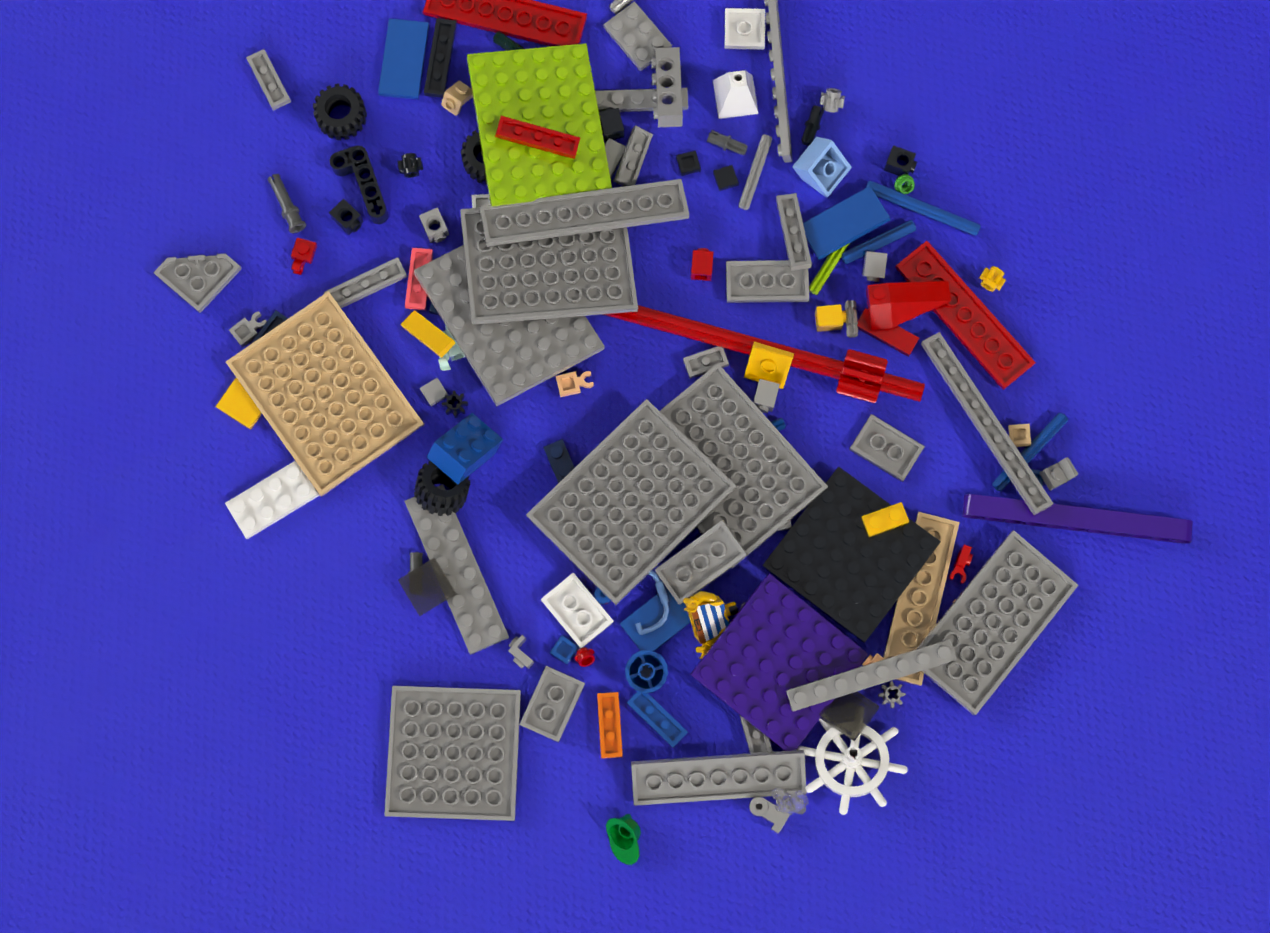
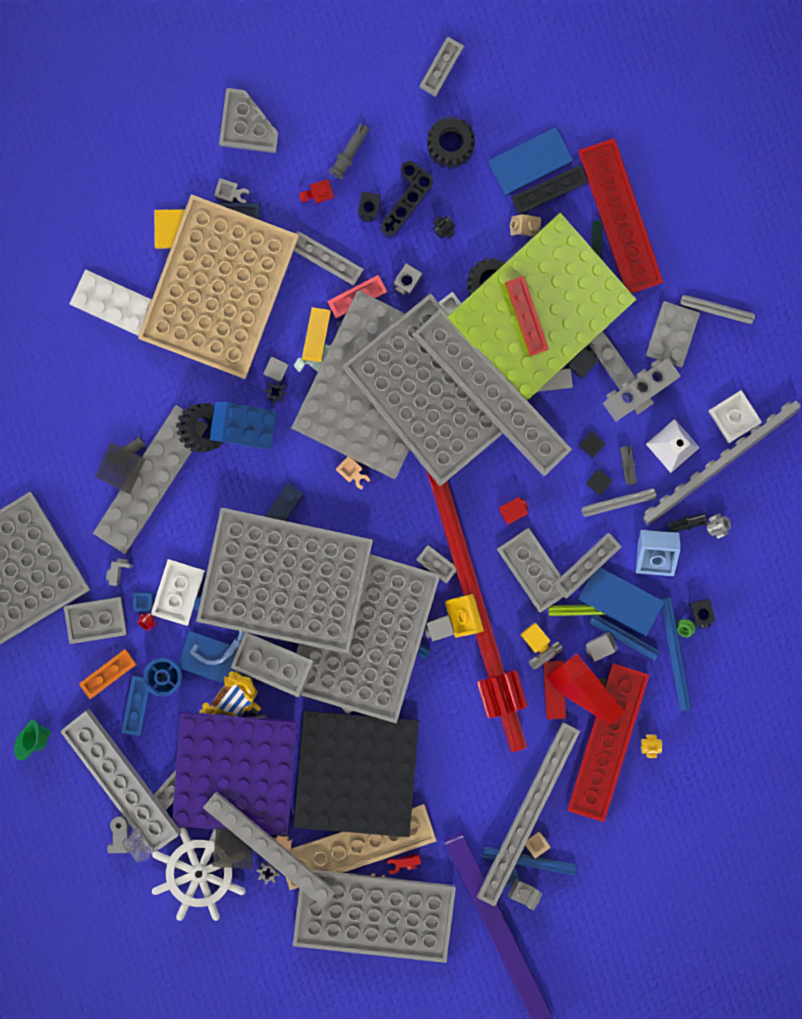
camera: 55 degrees right, 10 degrees up
(633, 157) = (567, 398): light grey tile -> none
(885, 519) = (398, 784): yellow plate -> none
(886, 448) = (460, 747): light grey tile -> none

